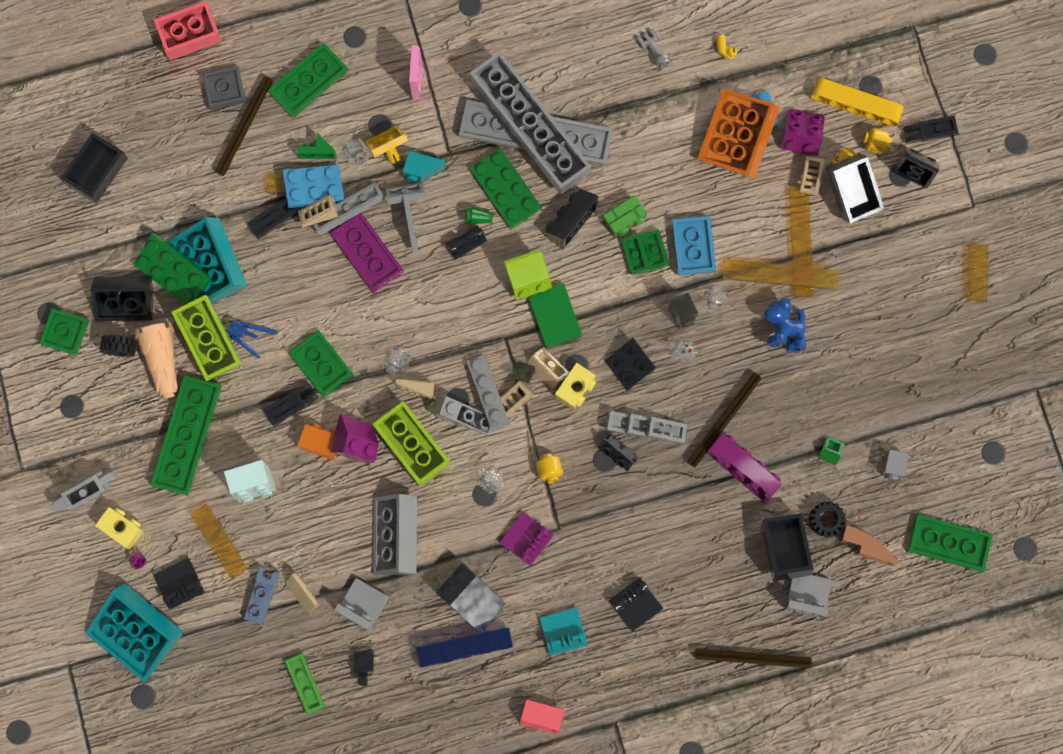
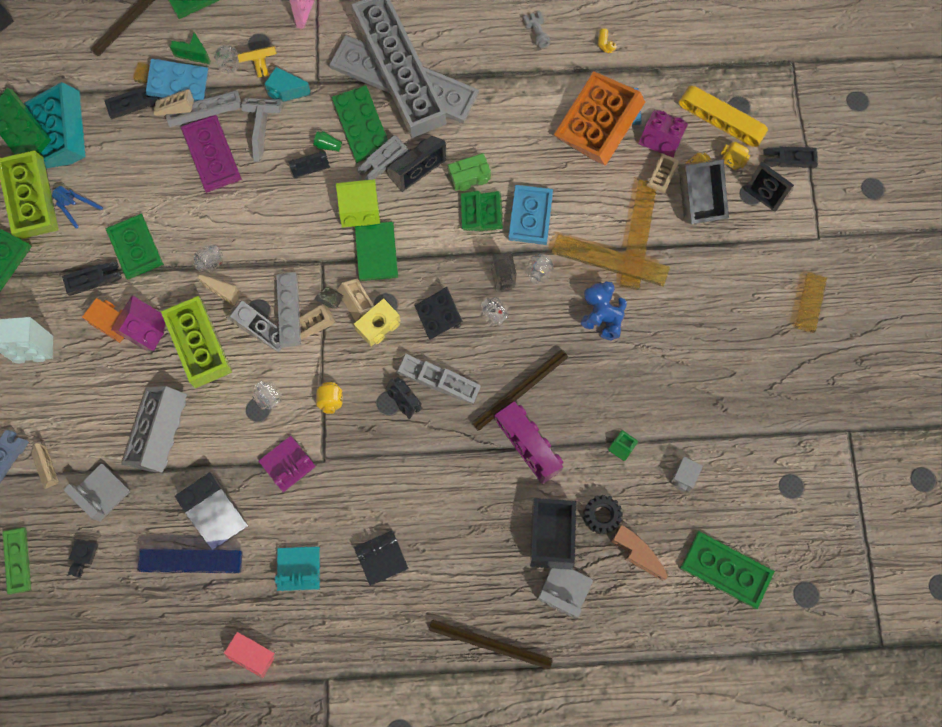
camera: 10 degrees right, 5 degrees down
(538, 220) = (381, 158): none -> light grey hinge

